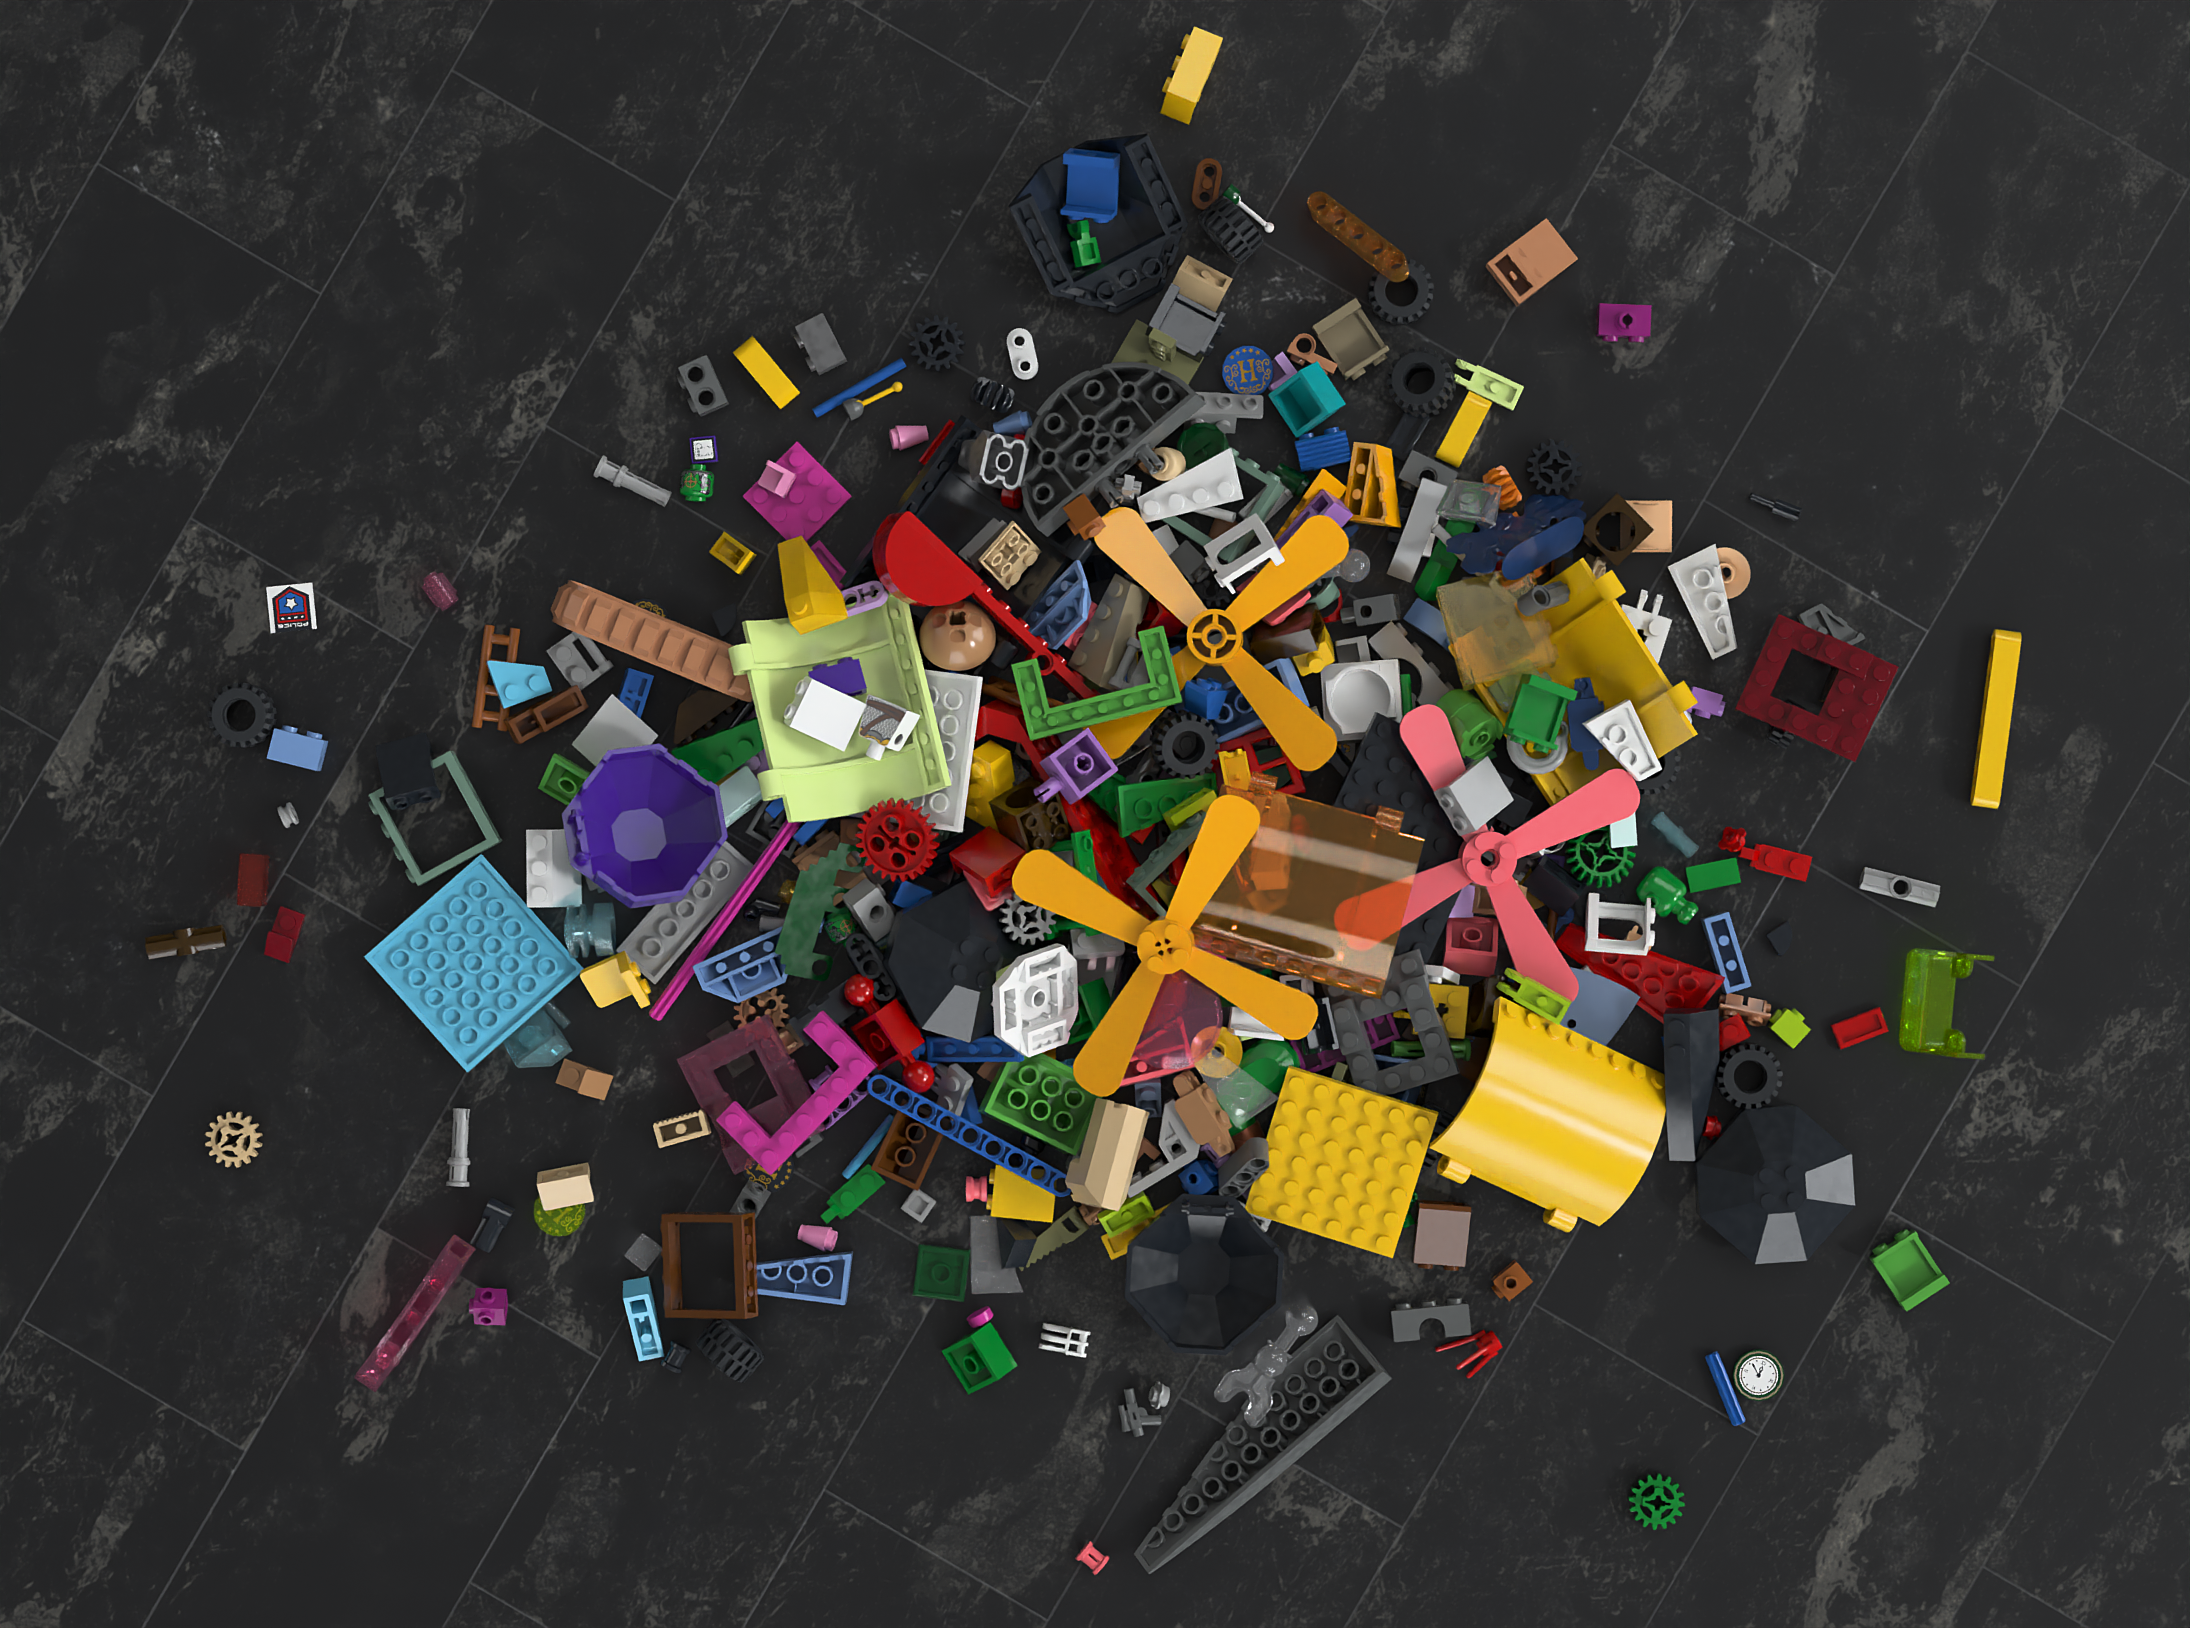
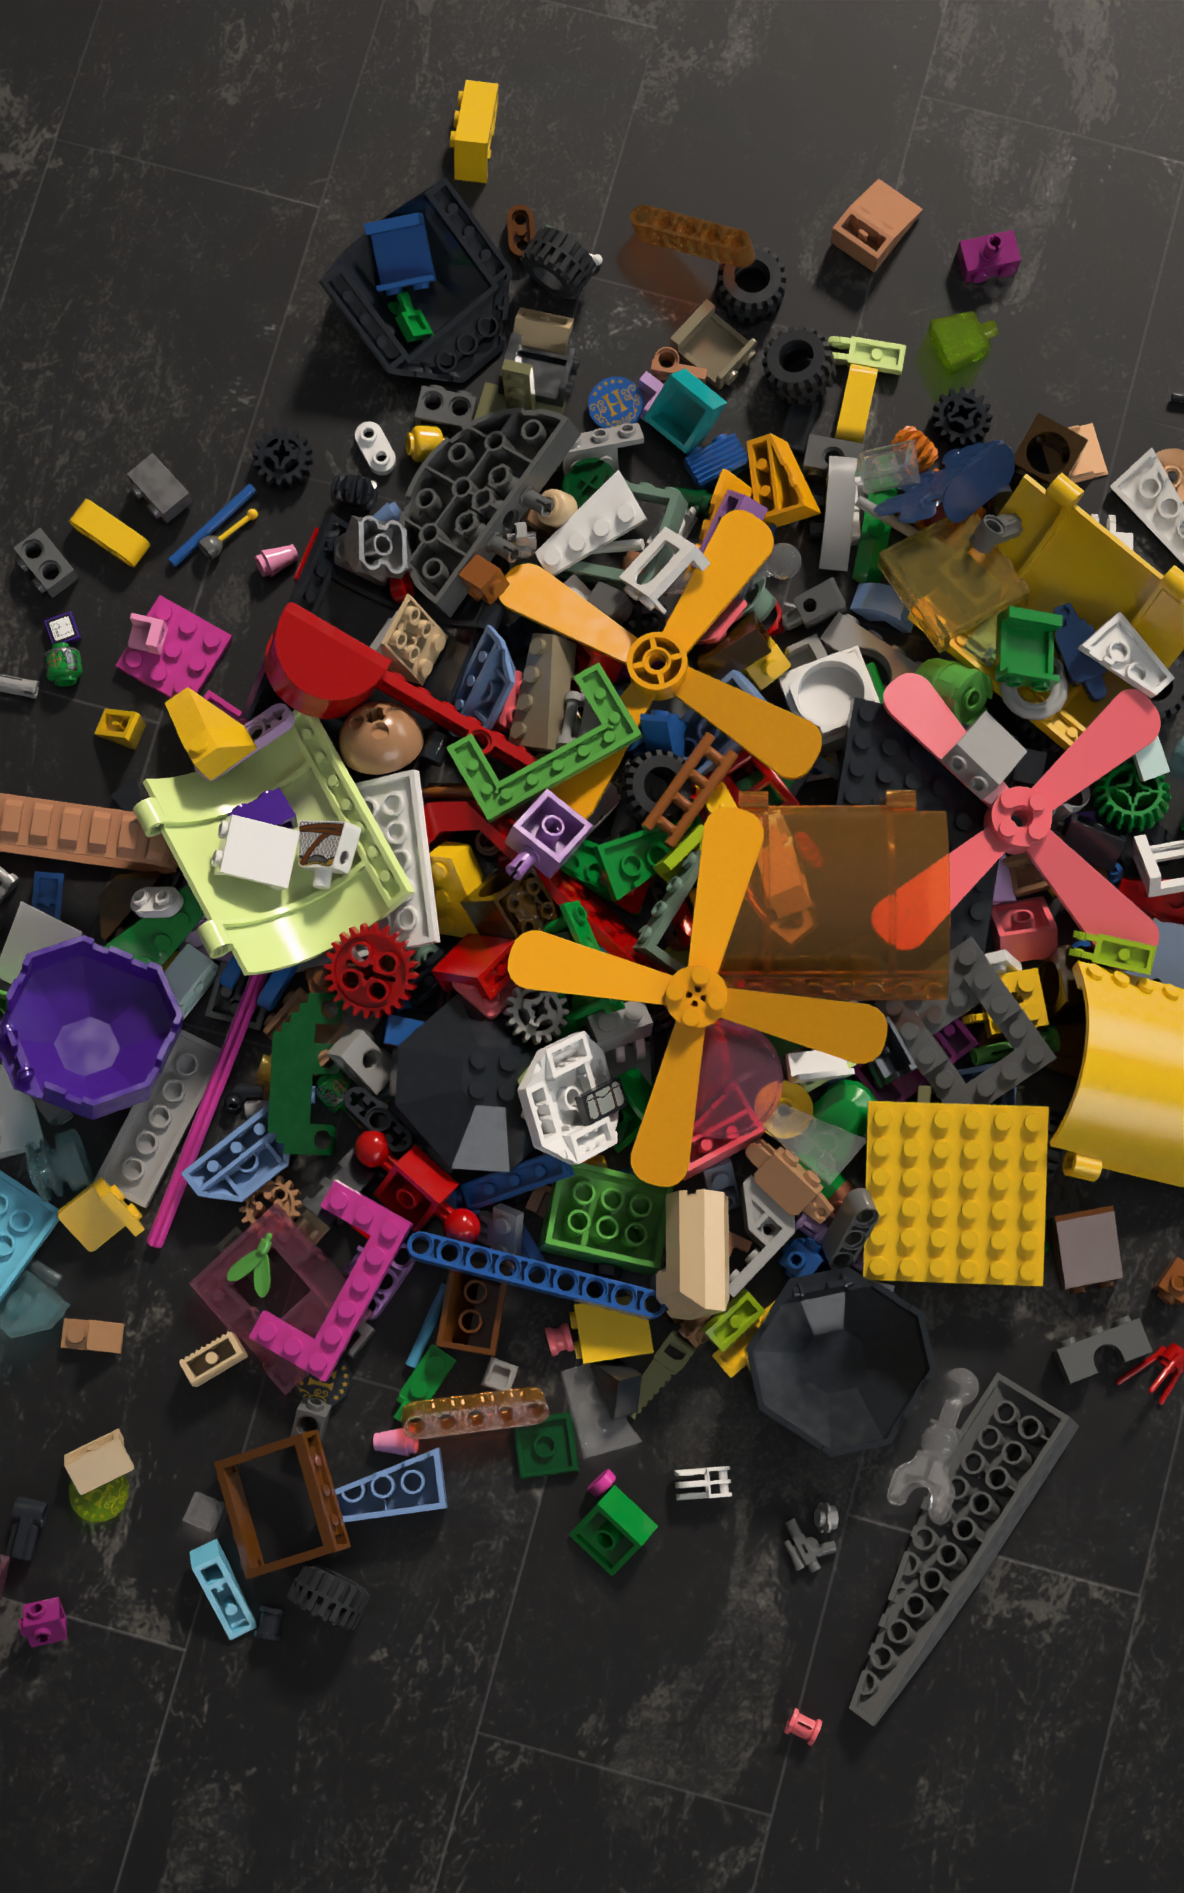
camera: 15 degrees left, 10 degrees down
(723, 725) = (156, 902): none -> white plate
(739, 1059) = (257, 1261): none -> bright green piece
(879, 1225) = (460, 1407): none -> clear orange beam
(1063, 1005) = (601, 1101): none -> tile
(1067, 363) = (423, 441): none -> yellow head
(1091, 343) = (444, 415): none -> dark grey brick
(1227, 756) = (672, 792): none -> dark orange bar
(1575, 394) = (960, 339): none -> clear neon green torso

